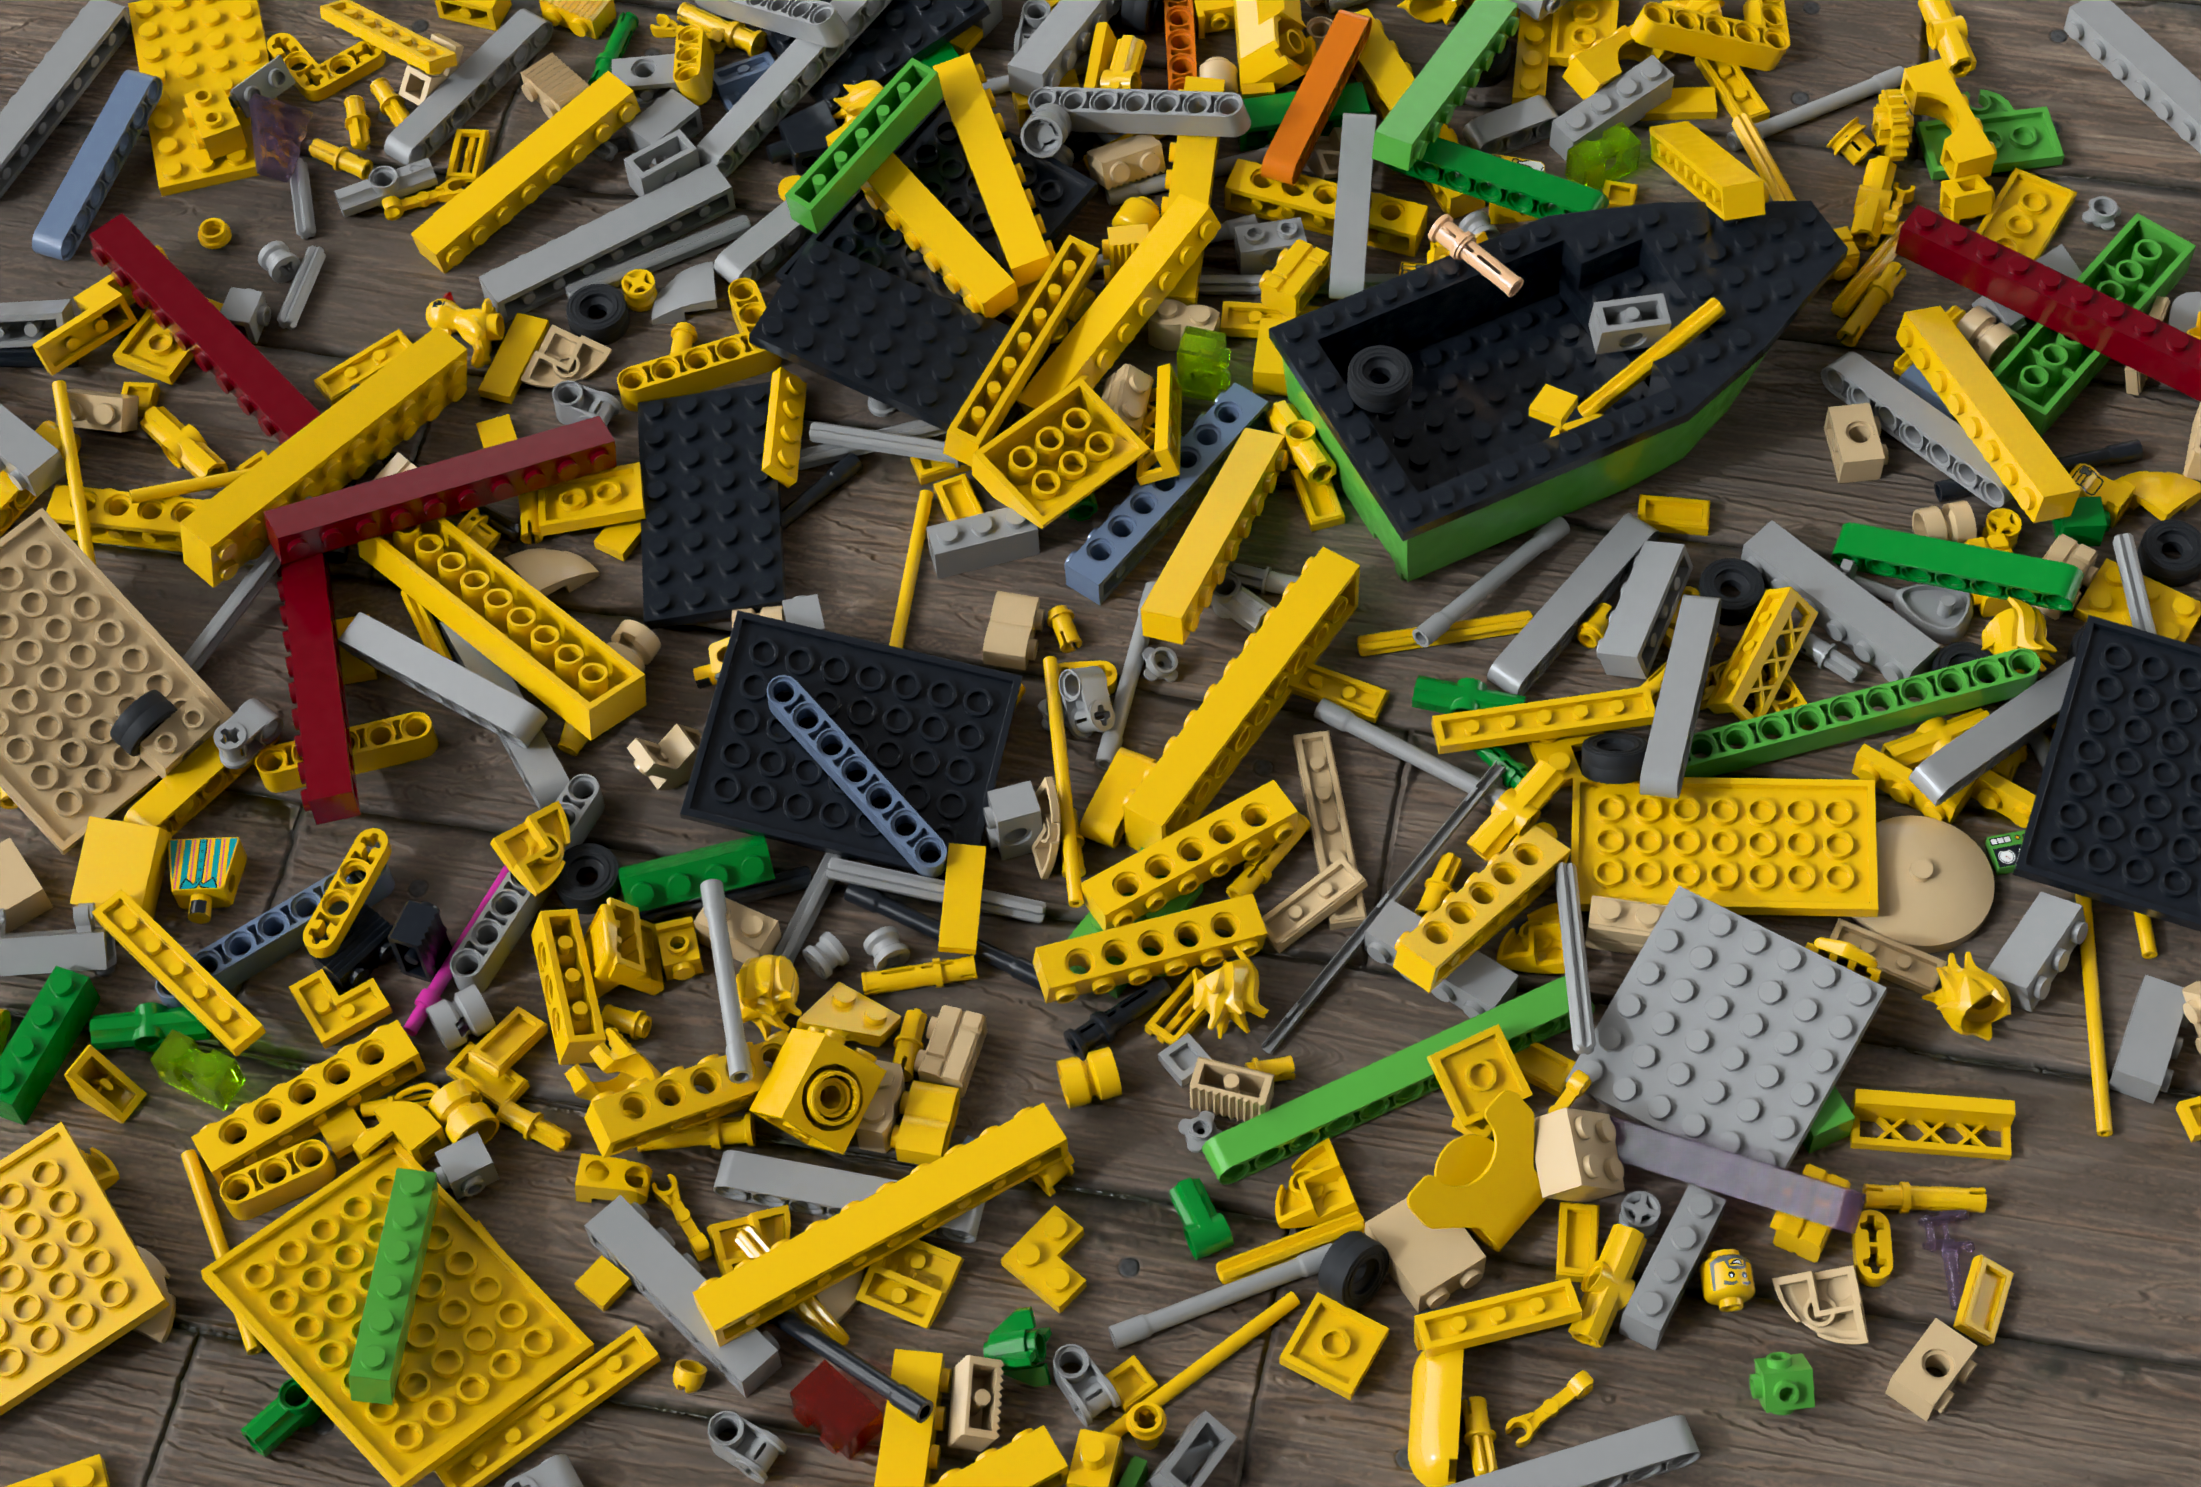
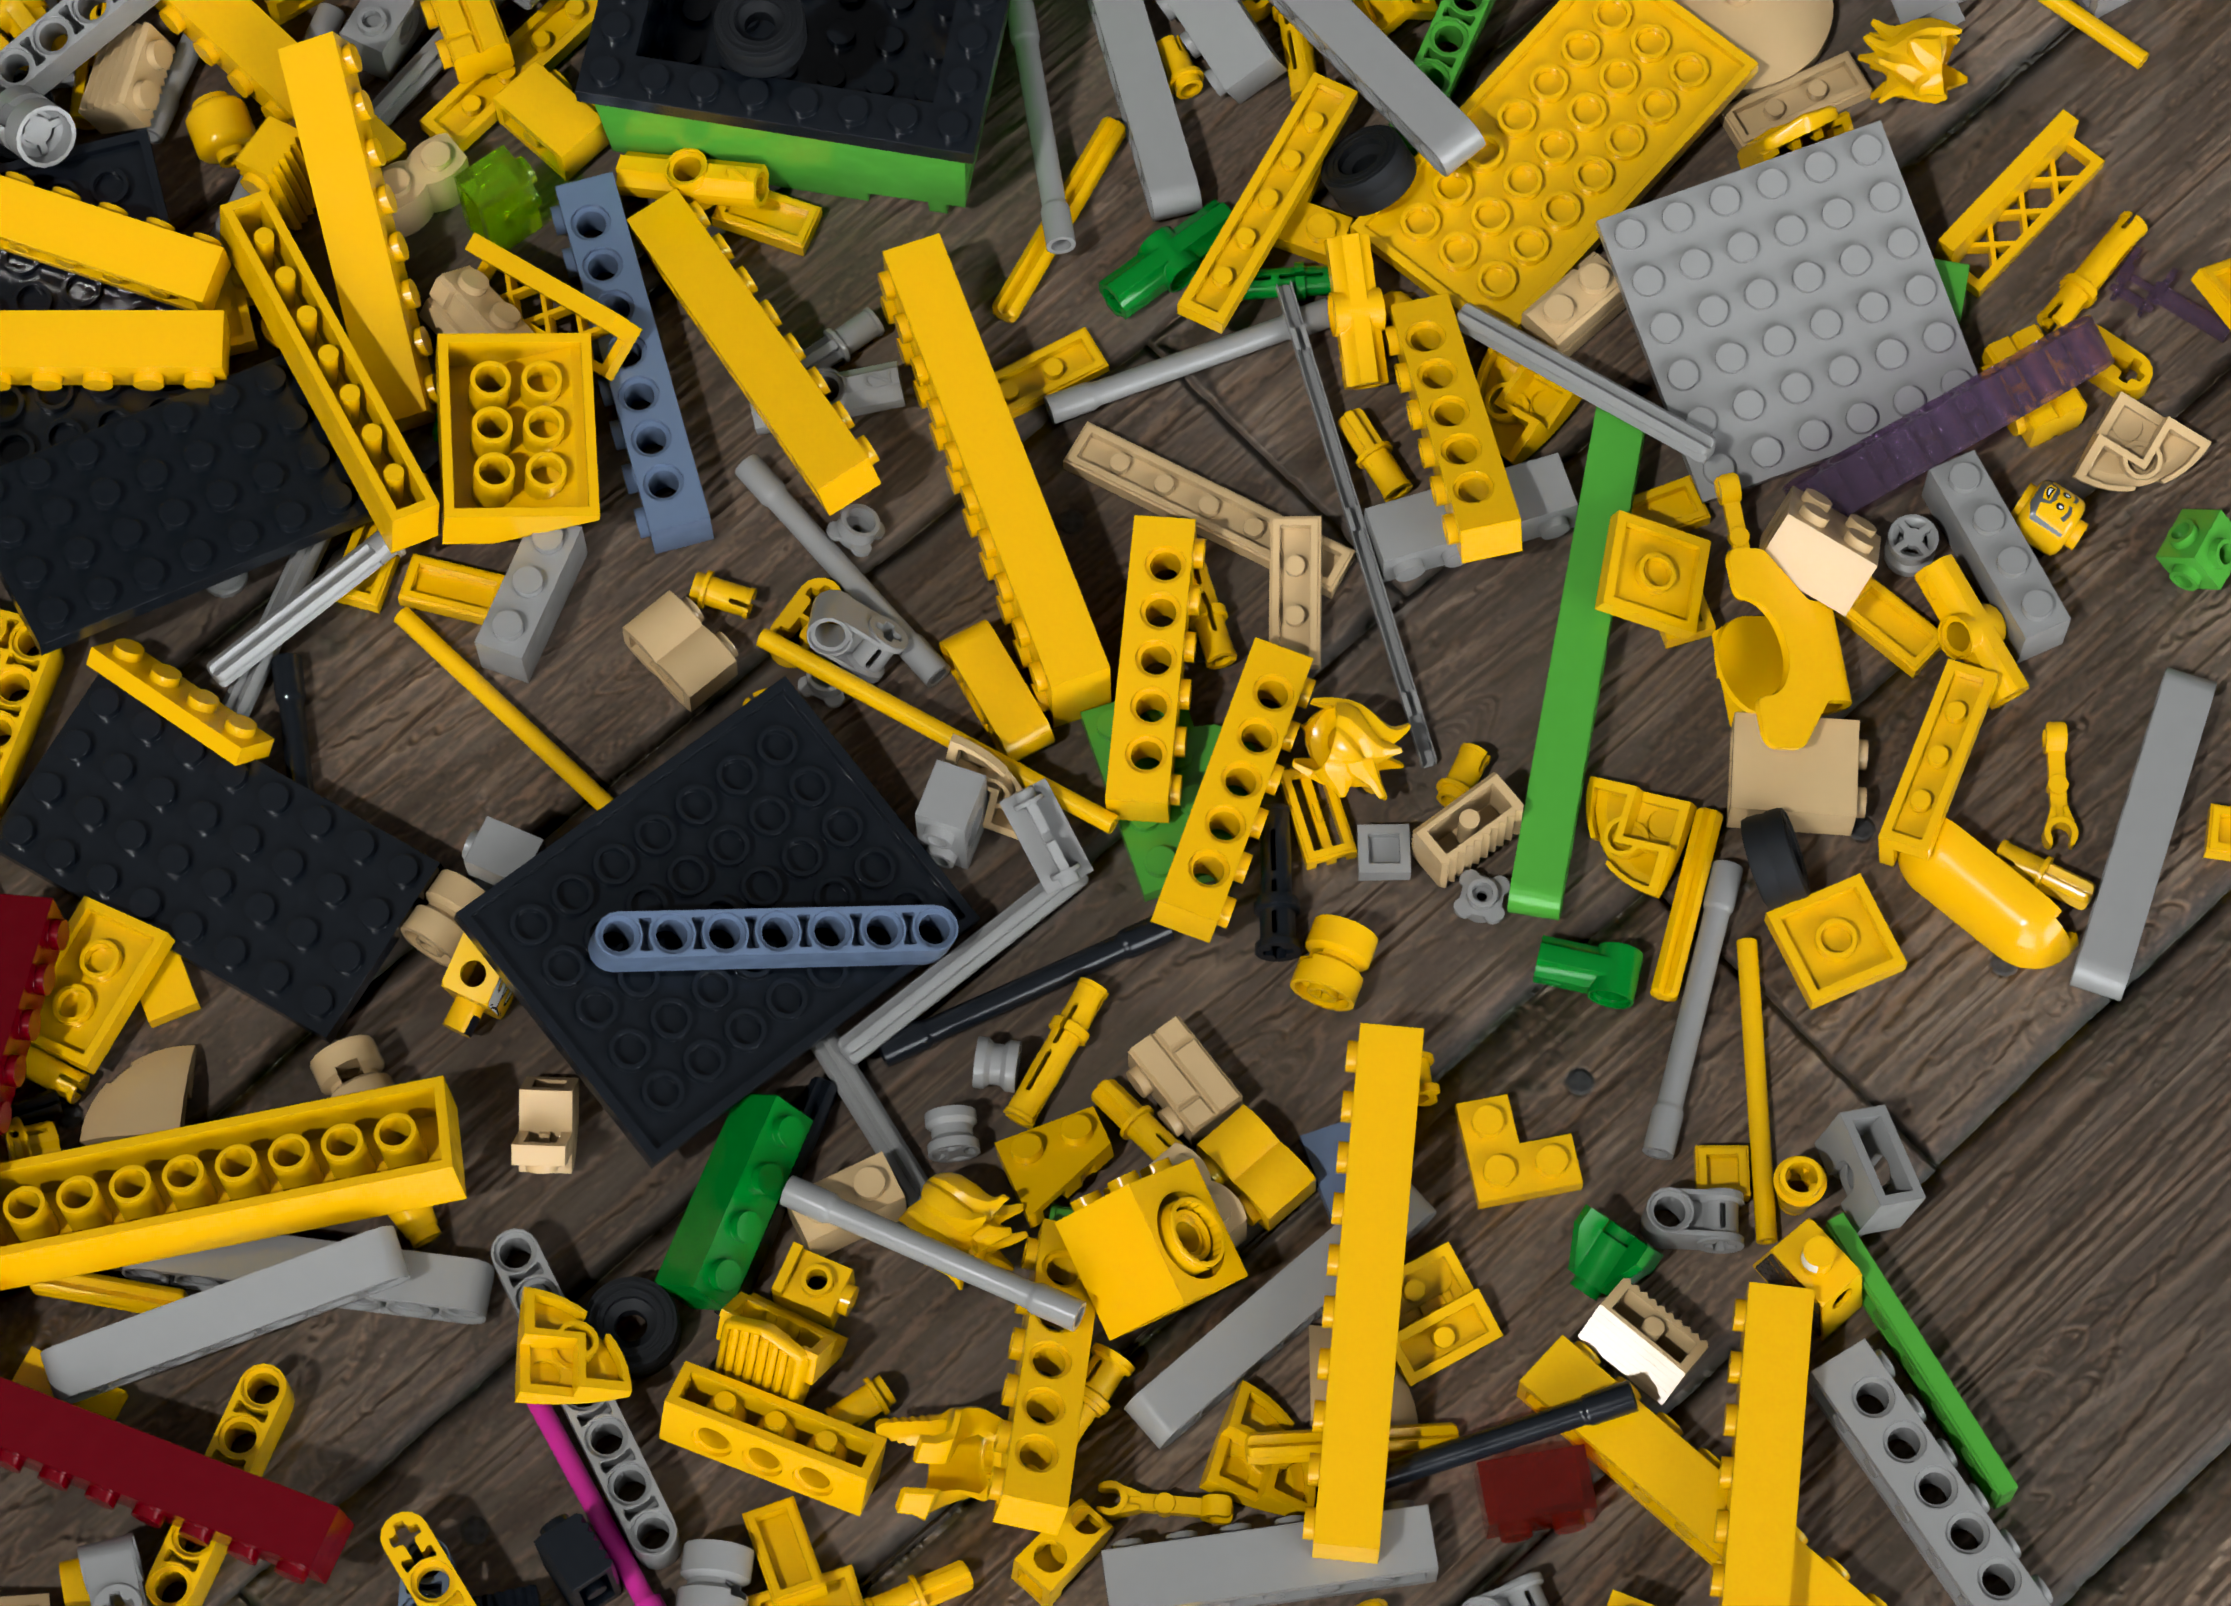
camera: 55 degrees left, 10 degrees up
(962, 899) = (1010, 939): yellow tile -> none
(1039, 873) = (1046, 836): none -> light grey hinge

